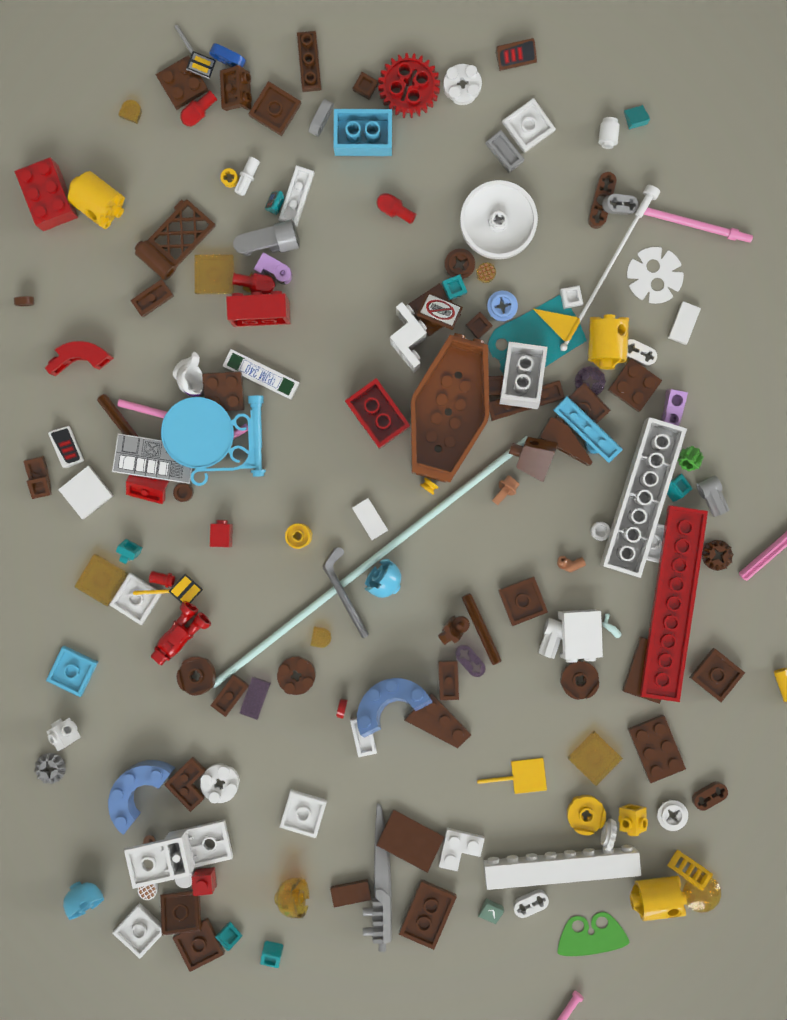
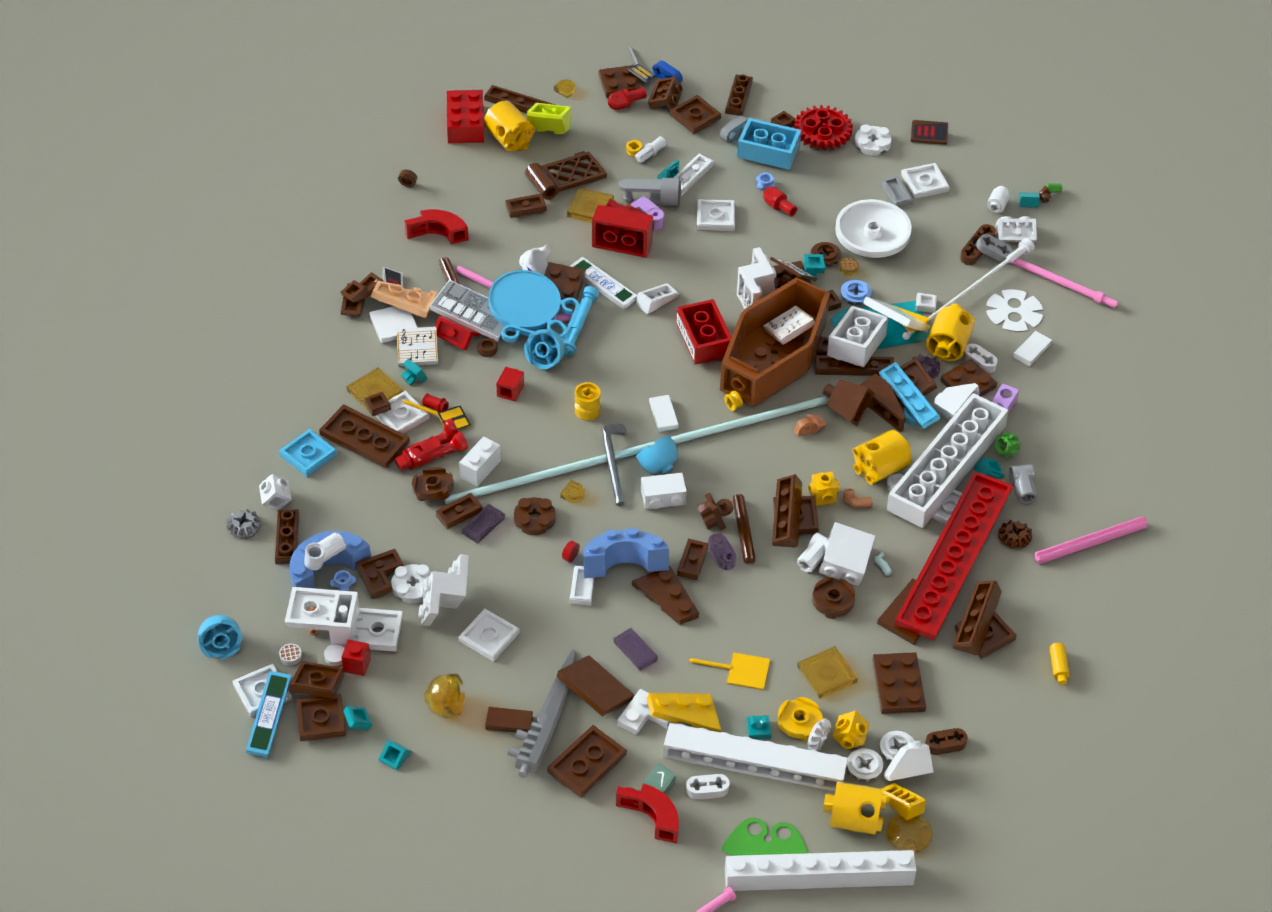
camera: 15 degrees right, 40 degrees down
(38, 473) = (358, 291): none -> reddish brown slope
(85, 467) = (408, 300): none -> light nougat wing
(89, 757) = (286, 535): none -> reddish brown tile
(93, 149) = (521, 102): none -> reddish brown tile
(111, 601) = (377, 404): none -> reddish brown tile
(114, 639) = (364, 436): none -> reddish brown plate
(119, 517) = (417, 345): none -> white tile
(132, 170) = (550, 118): none -> neon yellow slope
(134, 801) = (323, 550): none -> white piece
(155, 805) = (342, 580): none -> light blue plate
(155, 958) = (268, 714): none -> tile
(228, 637) = (480, 461): none -> white brick
(239, 487) = (544, 348): none -> medium azure cylinder
(252, 801) = (444, 590): none -> white bracket
(304, 386) = (655, 298): none -> white slope
(338, 245) = (716, 215): none -> white tile
(376, 177) = (764, 181): none -> light blue plate
(400, 615) = (663, 491): none -> white brick
(429, 788) = (635, 649): none -> clear purple tile
(456, 386) = (789, 325): none -> white tile
(491, 842) = (686, 708): none -> yellow wing
(498, 940) = (655, 805): none -> red arch
(516, 606) = (787, 512): none -> reddish brown slope
(533, 562) = (824, 488): none -> yellow brick
(552, 335) = (896, 314): none -> white tile
(554, 832) = (758, 727): none -> teal tile
(587, 509) = (882, 456): none -> yellow cylinder
(631, 422) = (953, 398): none -> white slope
(635, 169) = (1016, 230): none -> white bracket
(643, 958) = (820, 870): none -> white brick
(651, 106) = (1048, 189): none -> arm
(651, 850) = (865, 756): none -> white gear
(687, 836) = (910, 762): none -> white slope
(709, 668) = (978, 617): none -> reddish brown slope

